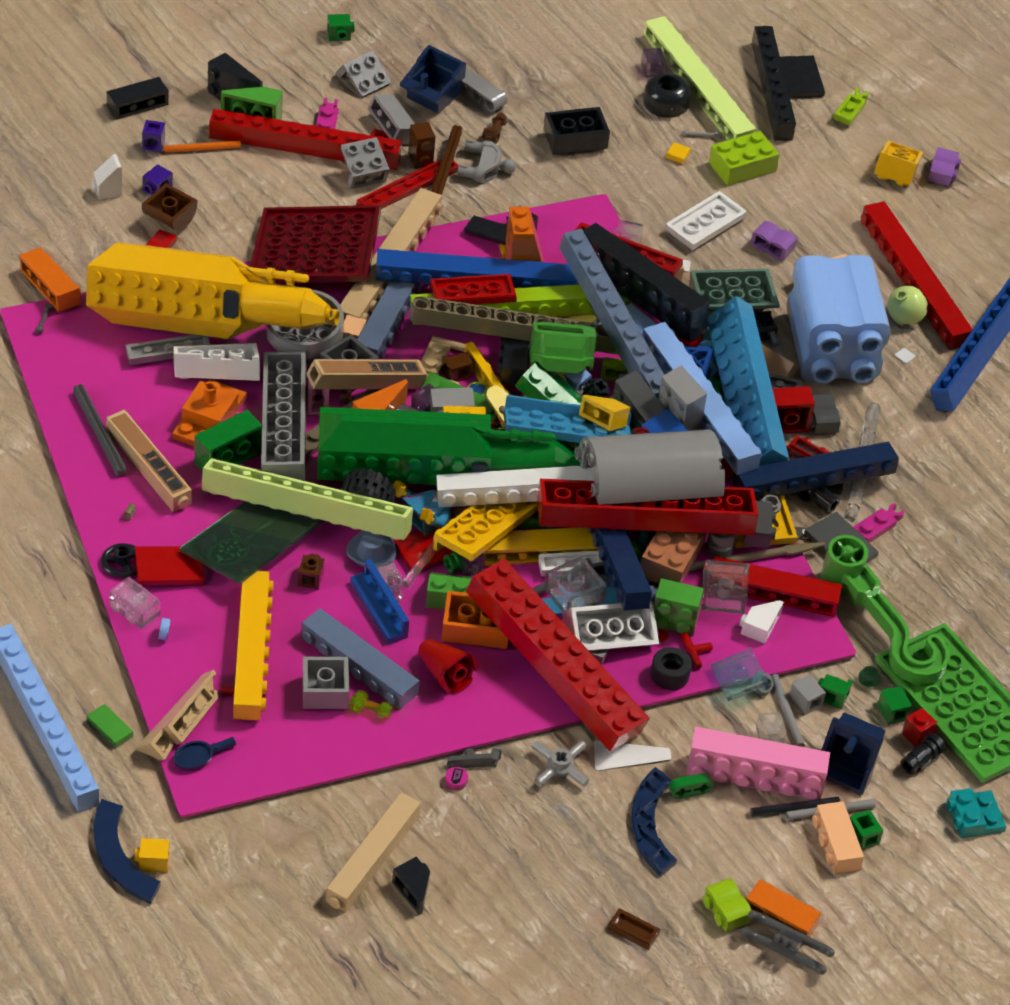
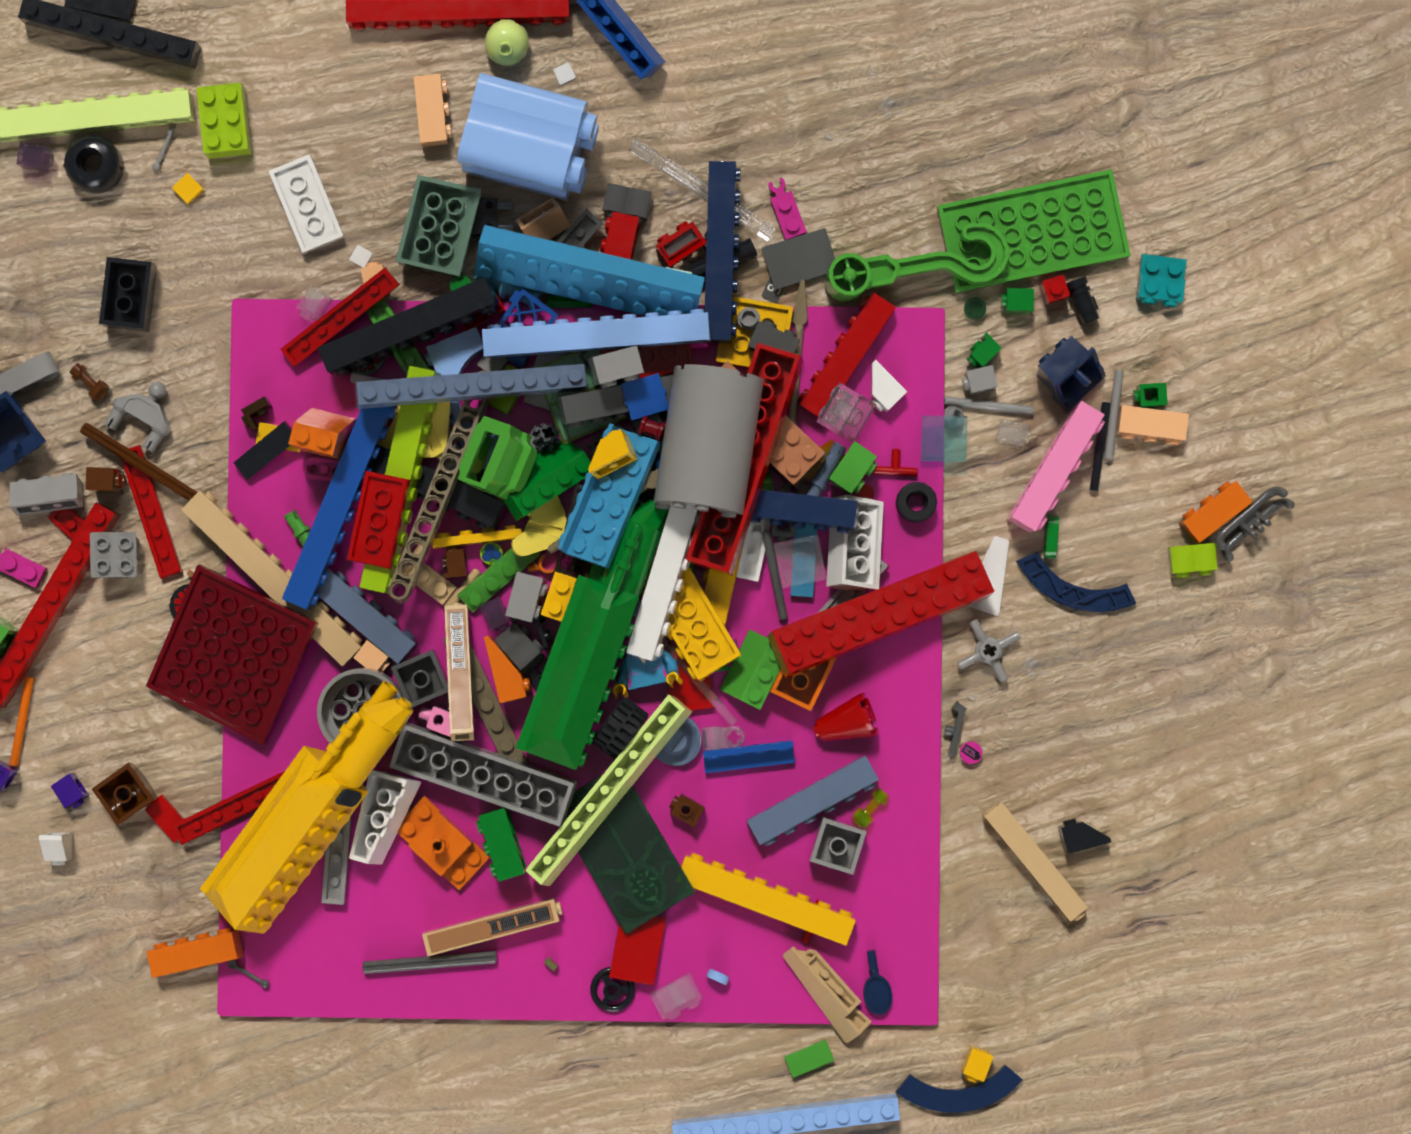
camera: 65 degrees left, 40 degrees up
(634, 929) = (1186, 652): reddish brown tile -> none
(773, 240) = (360, 142): medium lavender brick -> none

